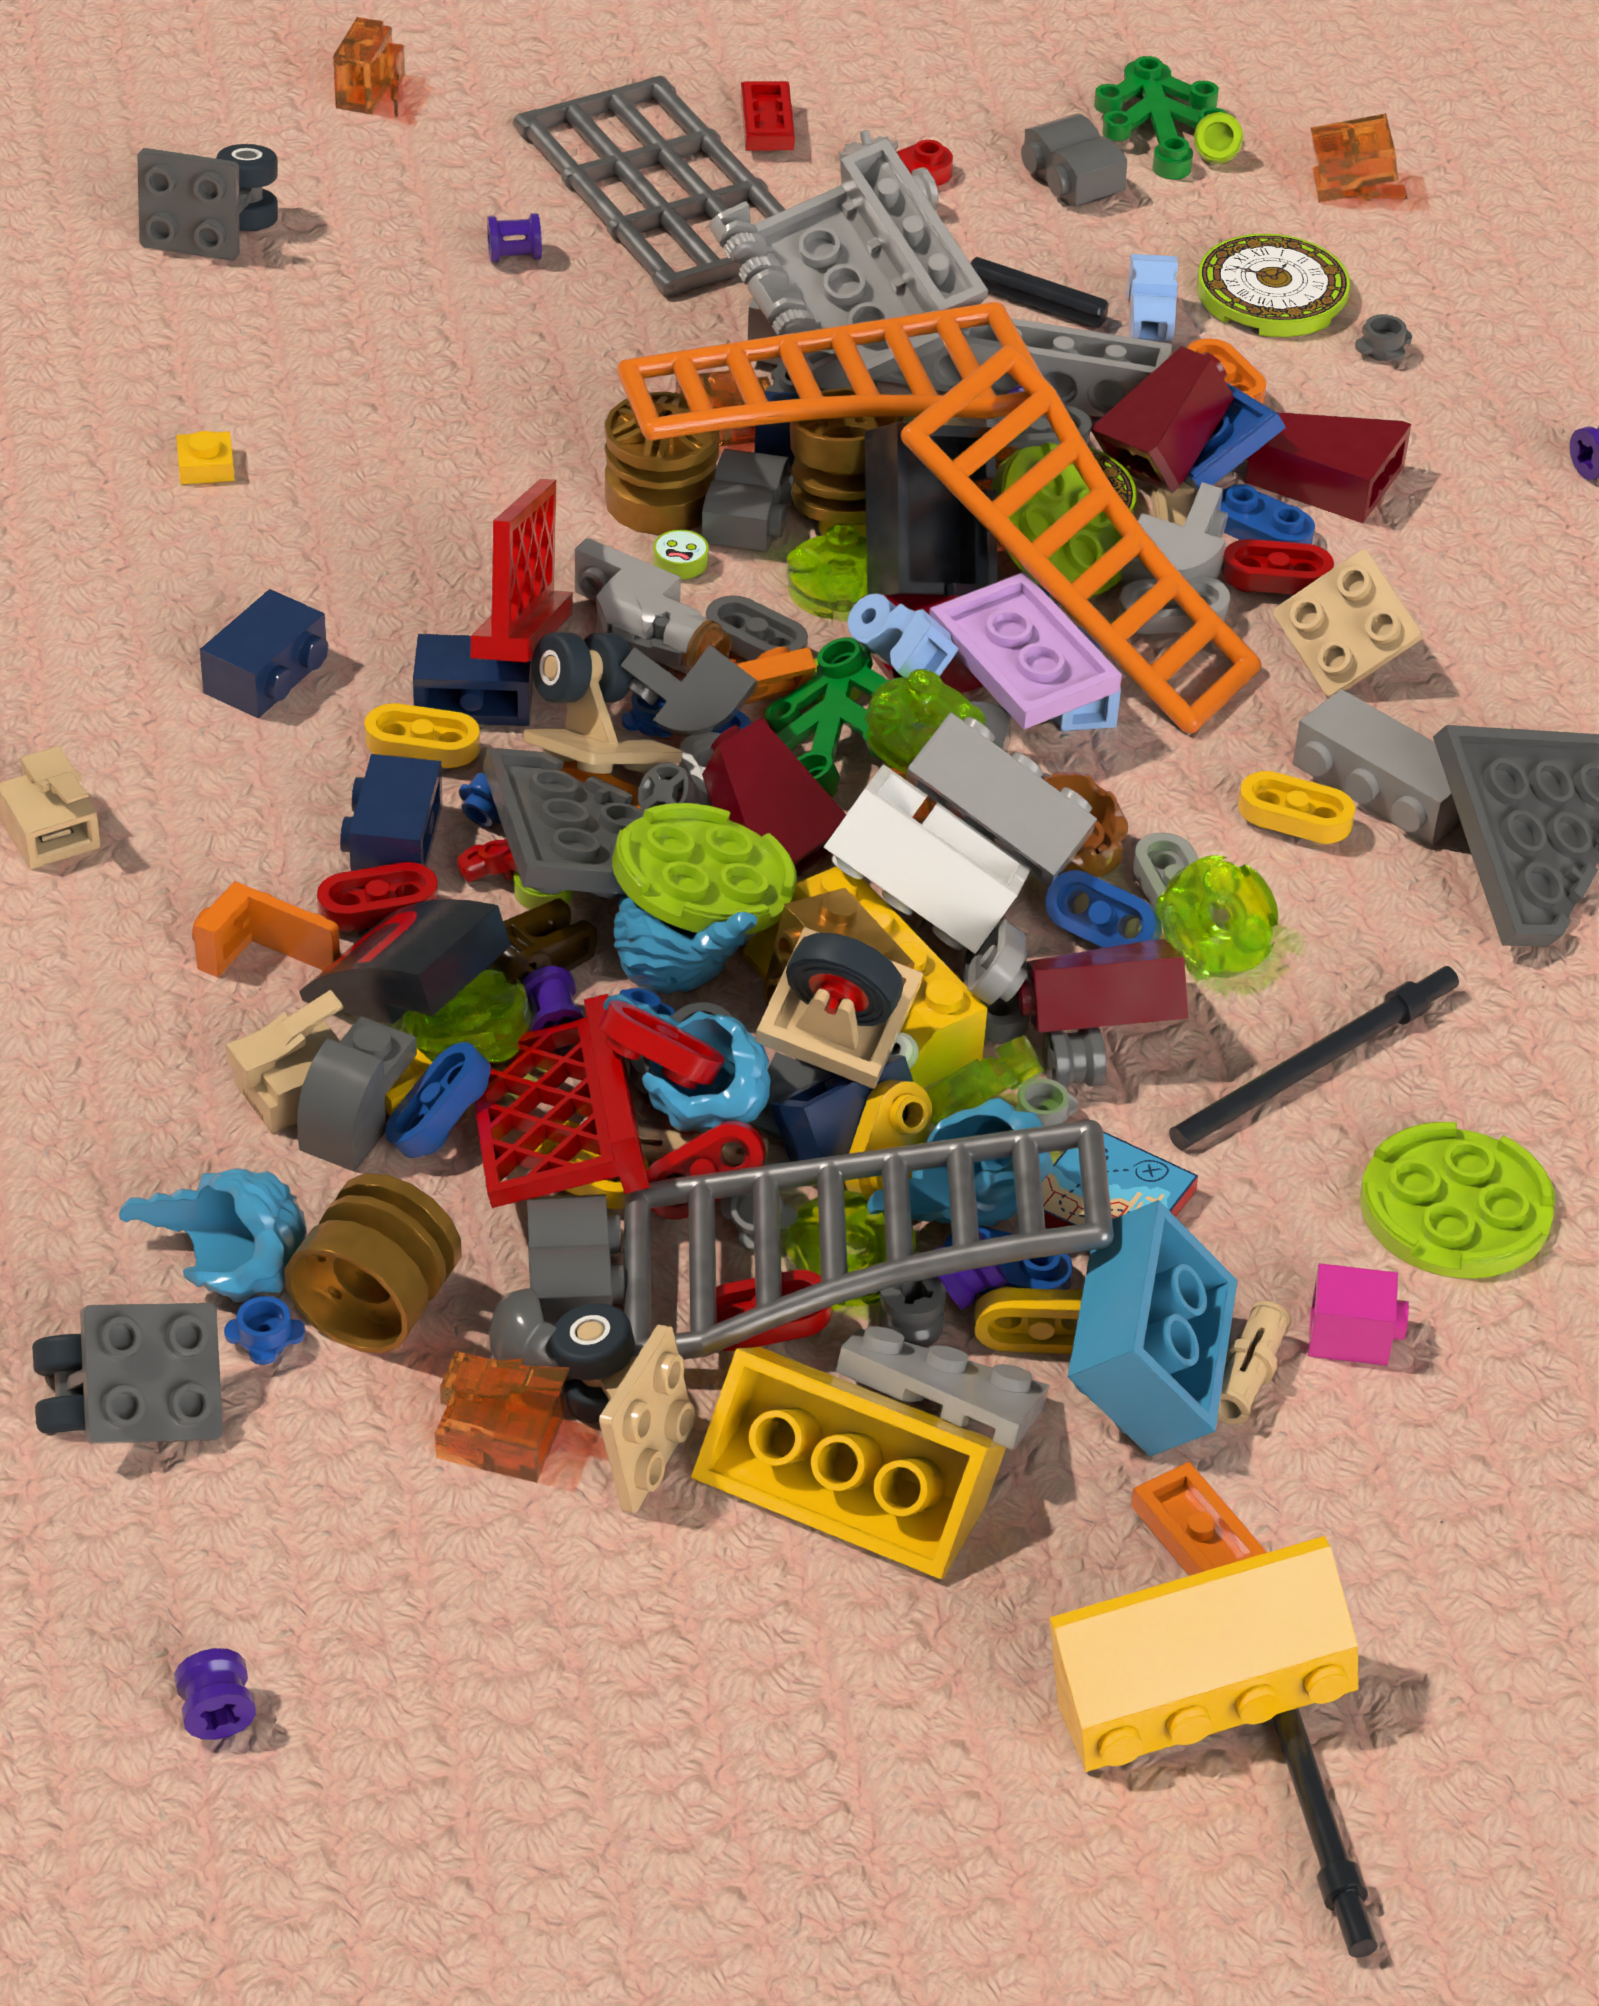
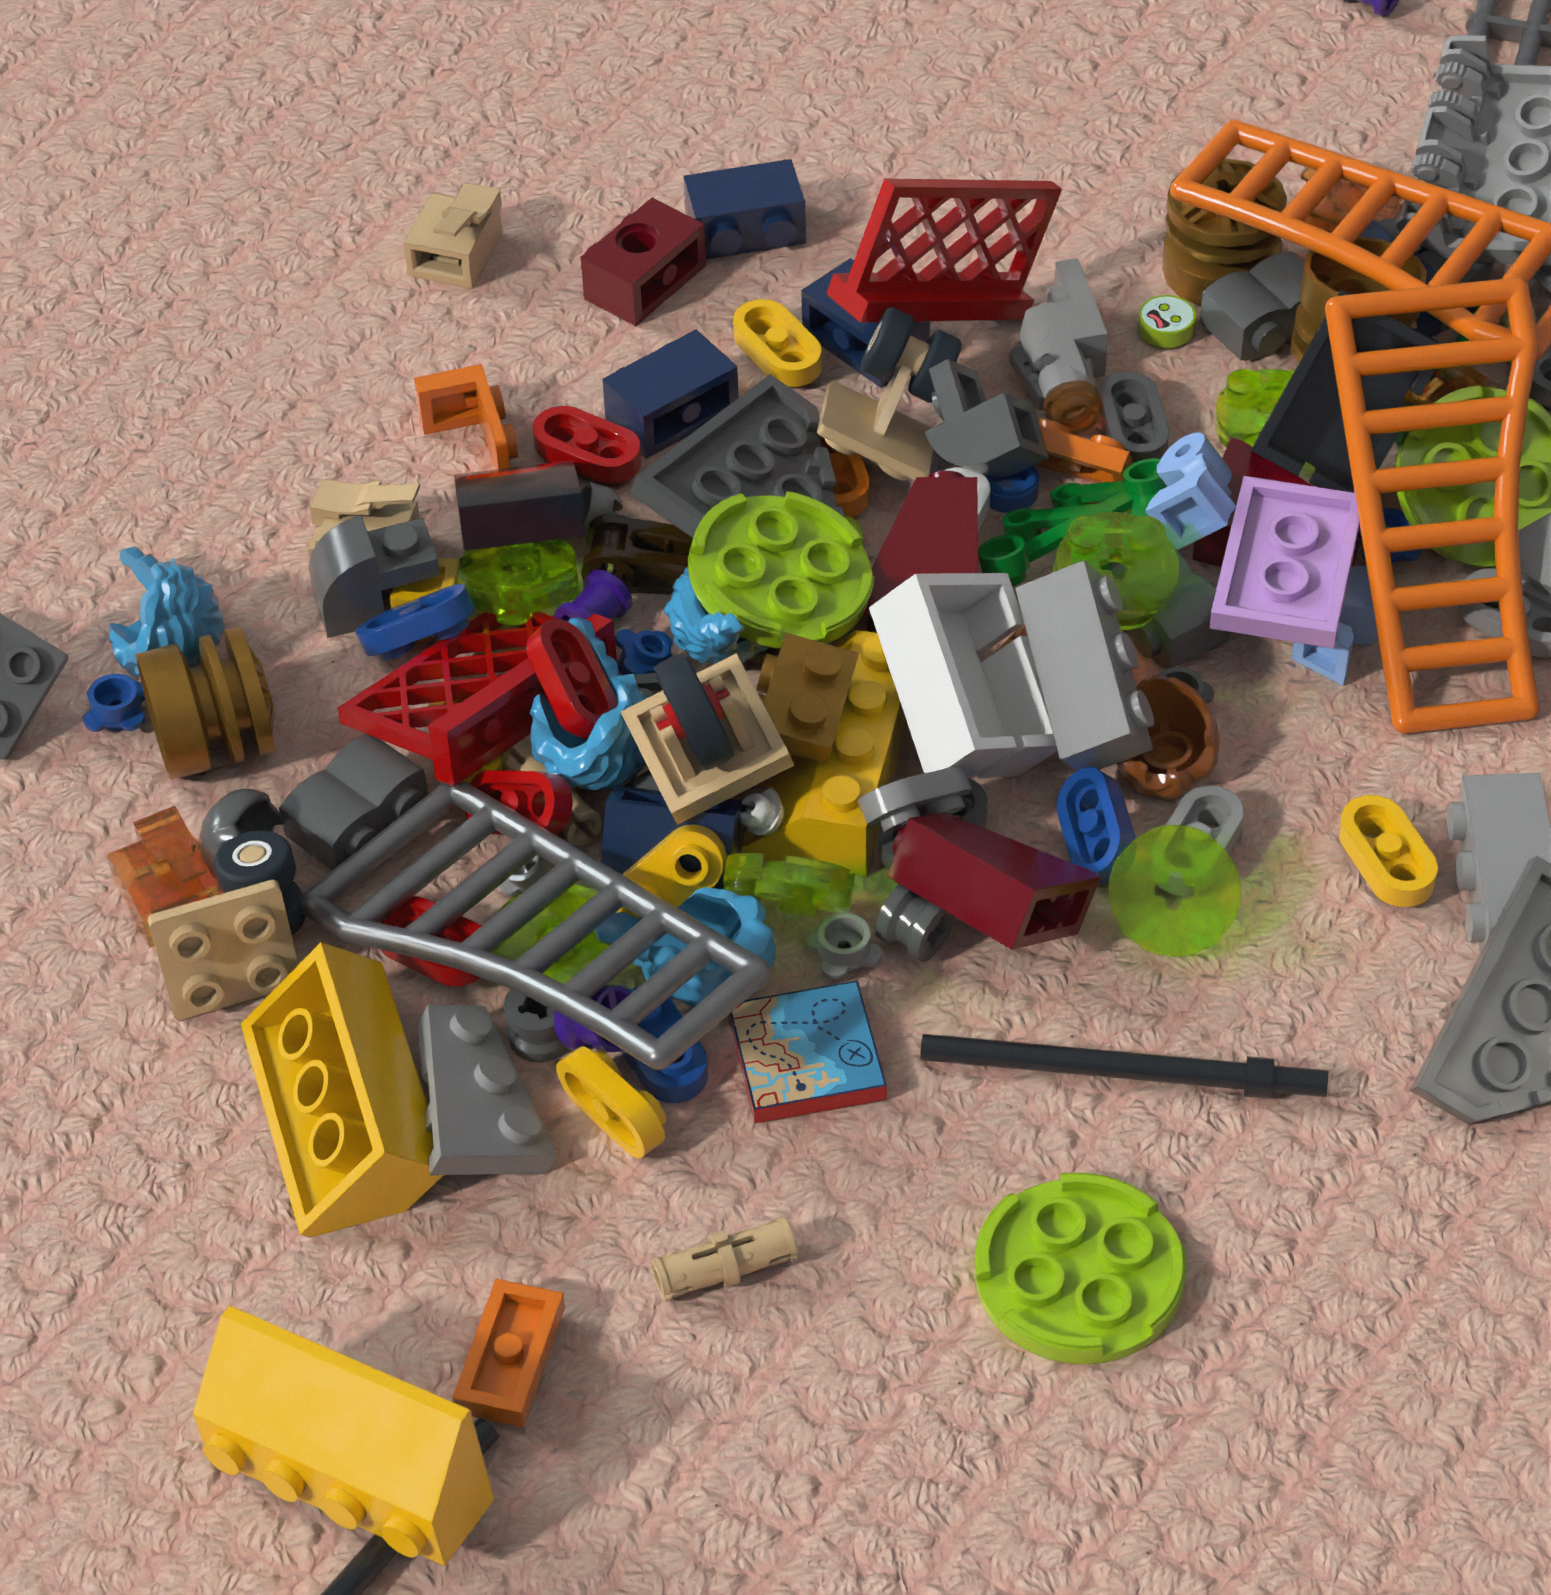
camera: 50 degrees right, 5 degrees up
(205, 457) = (911, 36): yellow plate -> none
(234, 736) = (643, 261): none -> dark red brick
(666, 781) = (875, 503): dark grey wheel -> none
(1154, 1330) = (648, 1167): dark azure brick -> none
(1355, 1314) = (849, 1286): dark pink brick -> none

